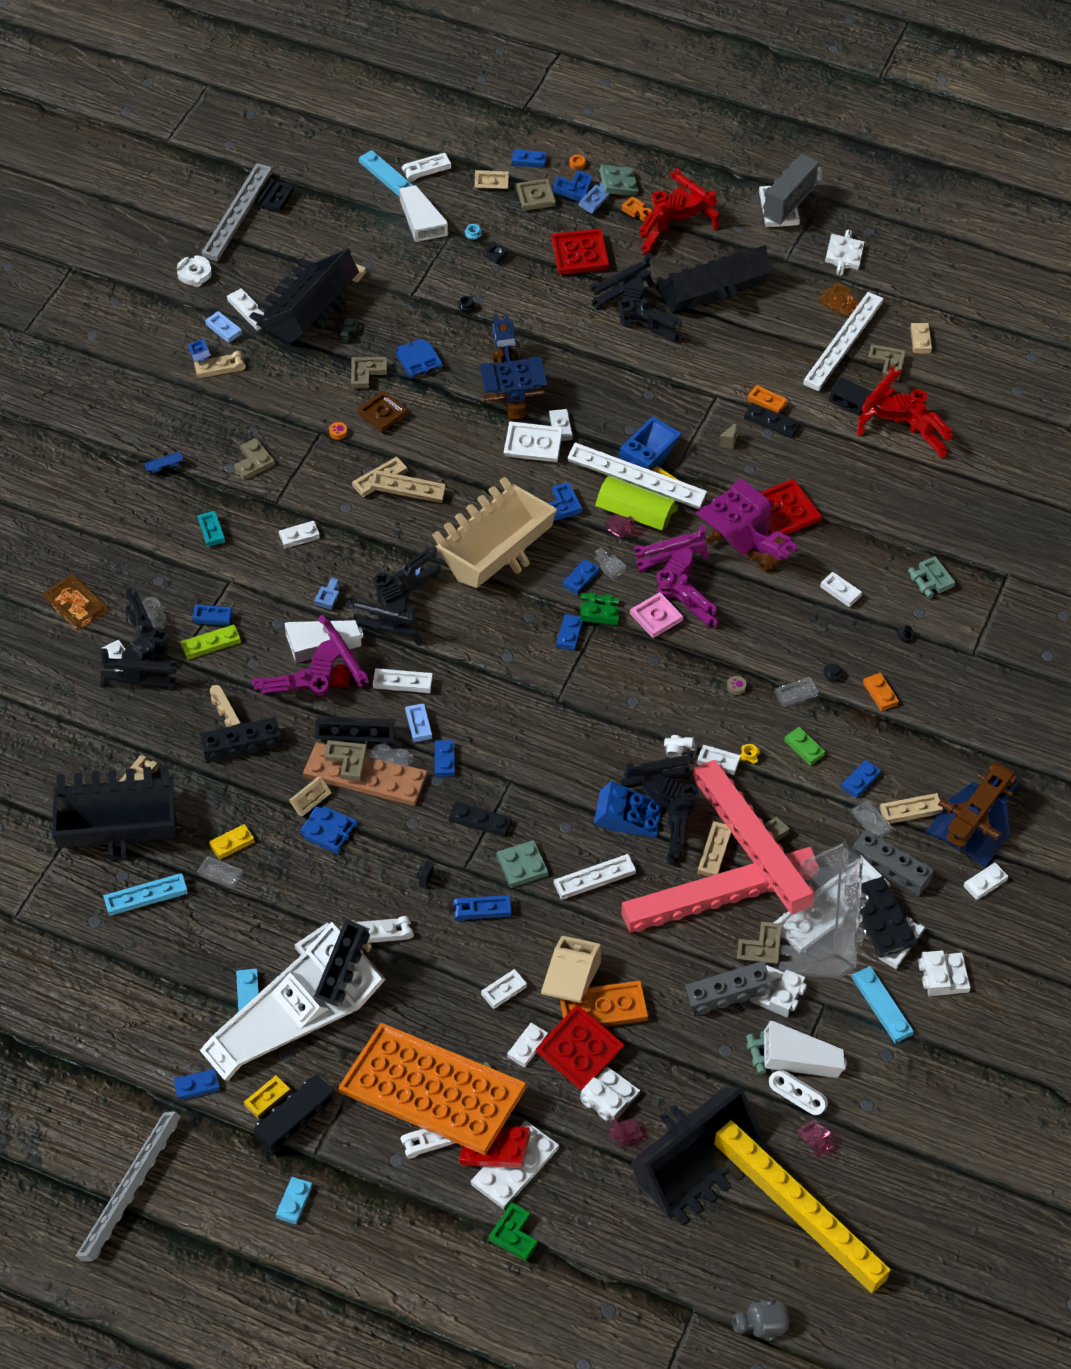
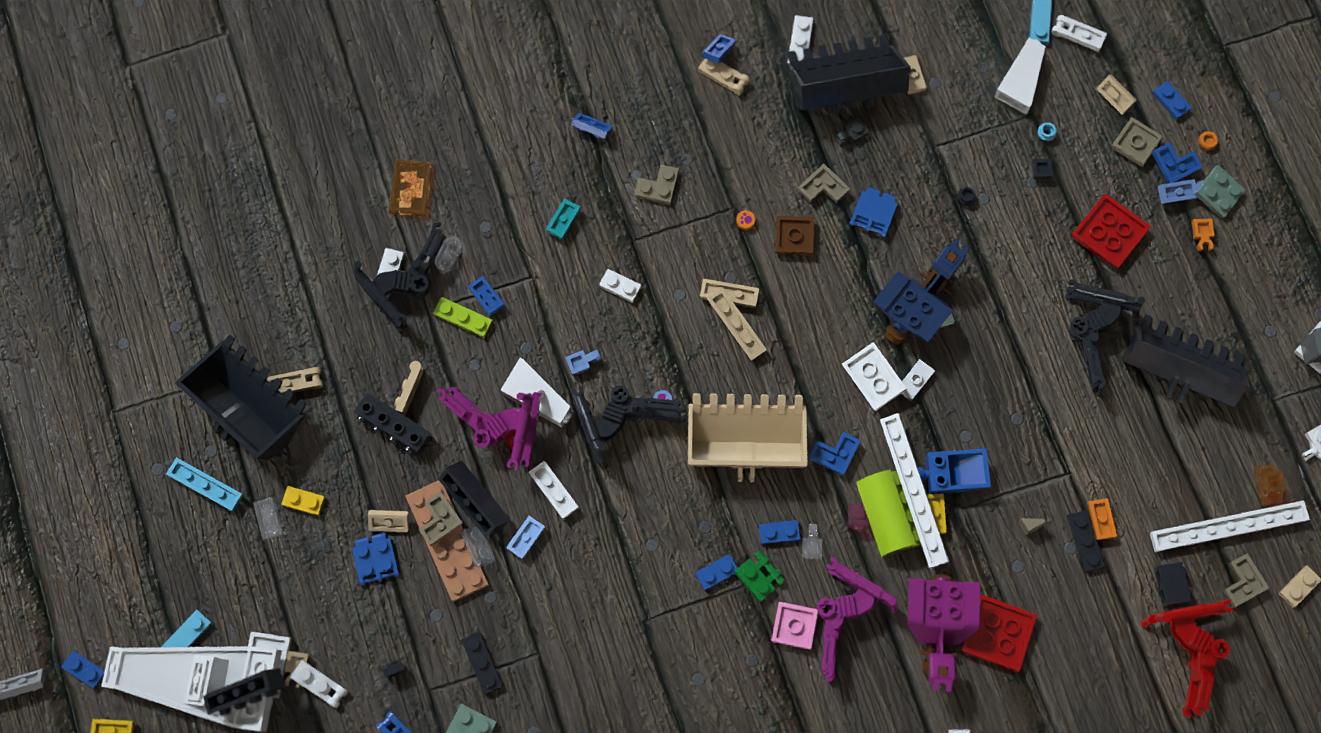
camera: 50 degrees right, 20 degrees up
(223, 327) = (762, 42): light blue plate -> none
(444, 758) = (513, 586): blue plate -> none
(677, 206) = (1231, 265): red piece -> none

